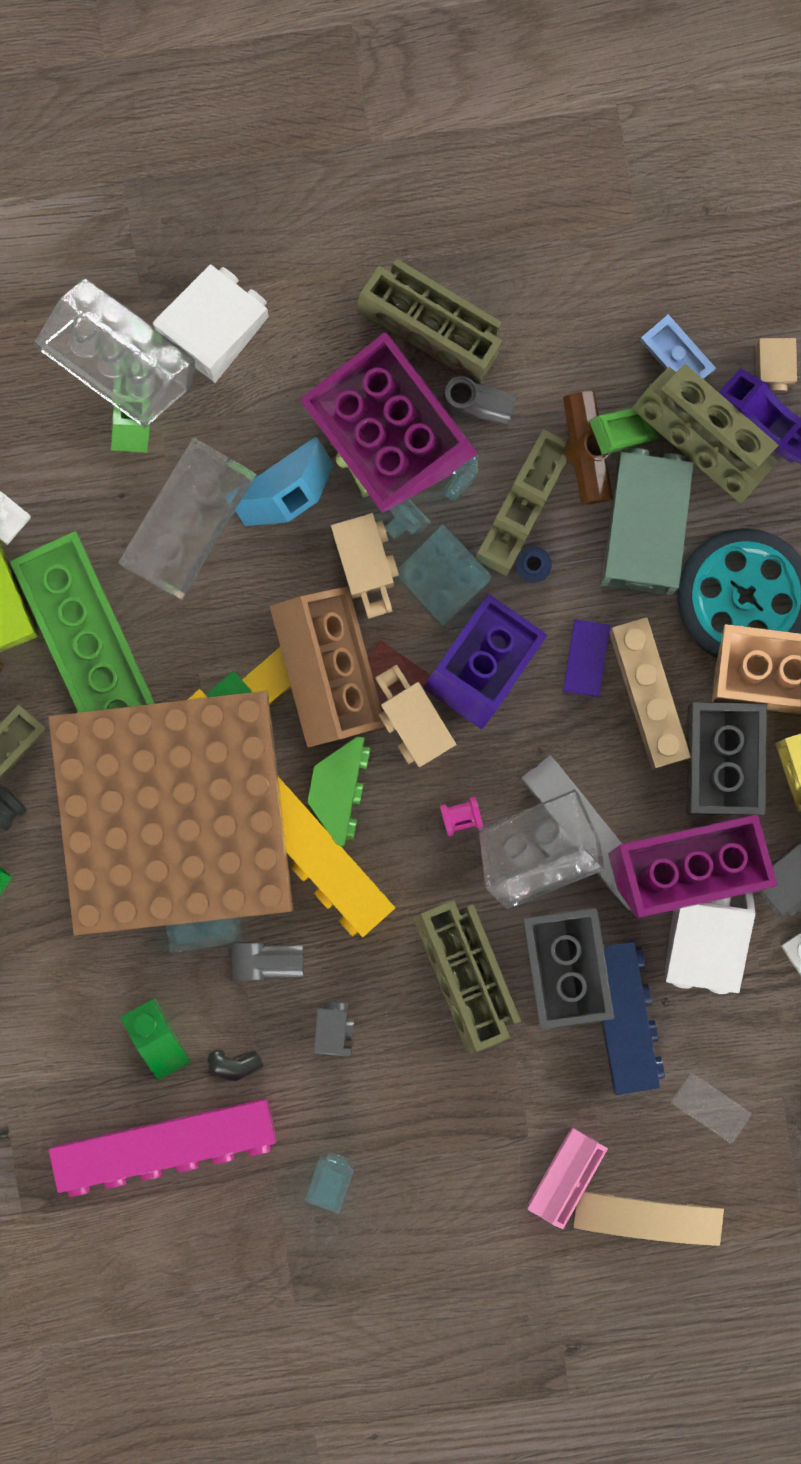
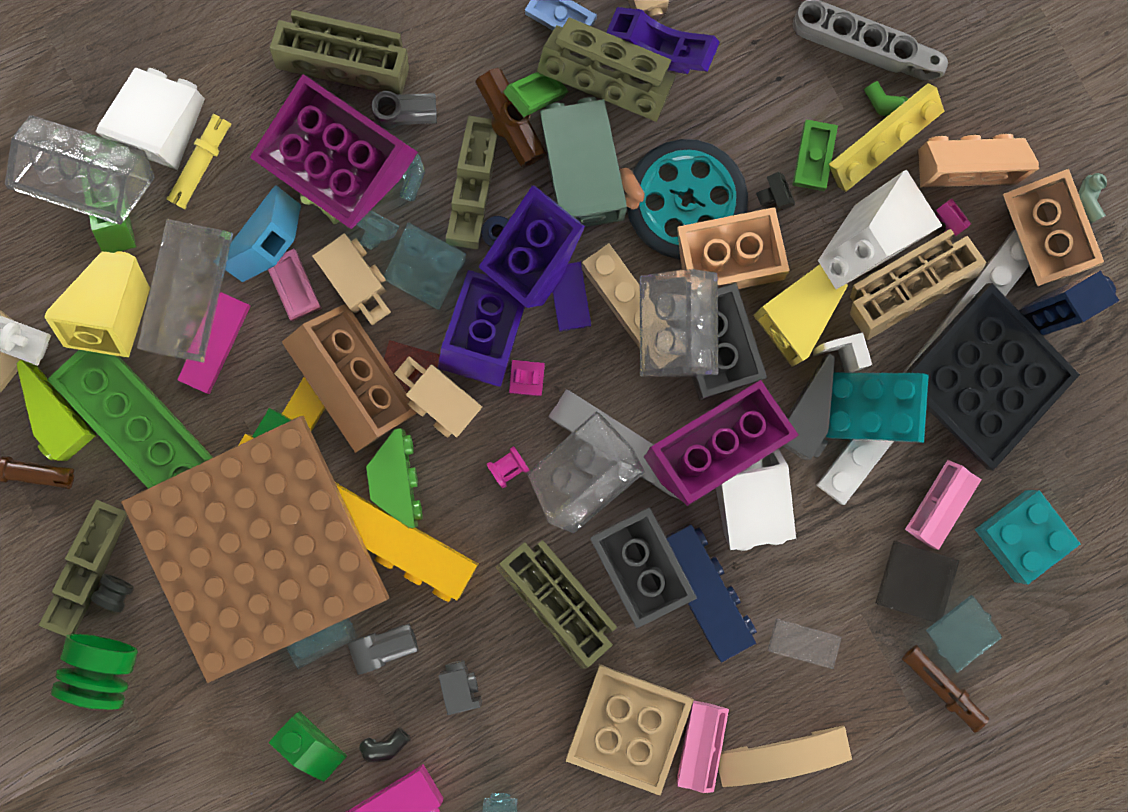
camera: 20 degrees left, 0 degrees up
(96, 507) = (102, 306): none -> light yellow slope
(173, 611) = (226, 325): none -> dark pink tile
(242, 383) = (199, 160): none -> light yellow pin
(298, 550) = (294, 286): none -> bright pink tile
(496, 1134) = (629, 729): none -> tan plate
(512, 729) = (527, 378): none -> dark pink tile
(565, 597) = (533, 249): none -> dark purple slope
(691, 566) = (631, 186): none -> nougat arm
(691, 727) = (679, 324): none -> clear slope

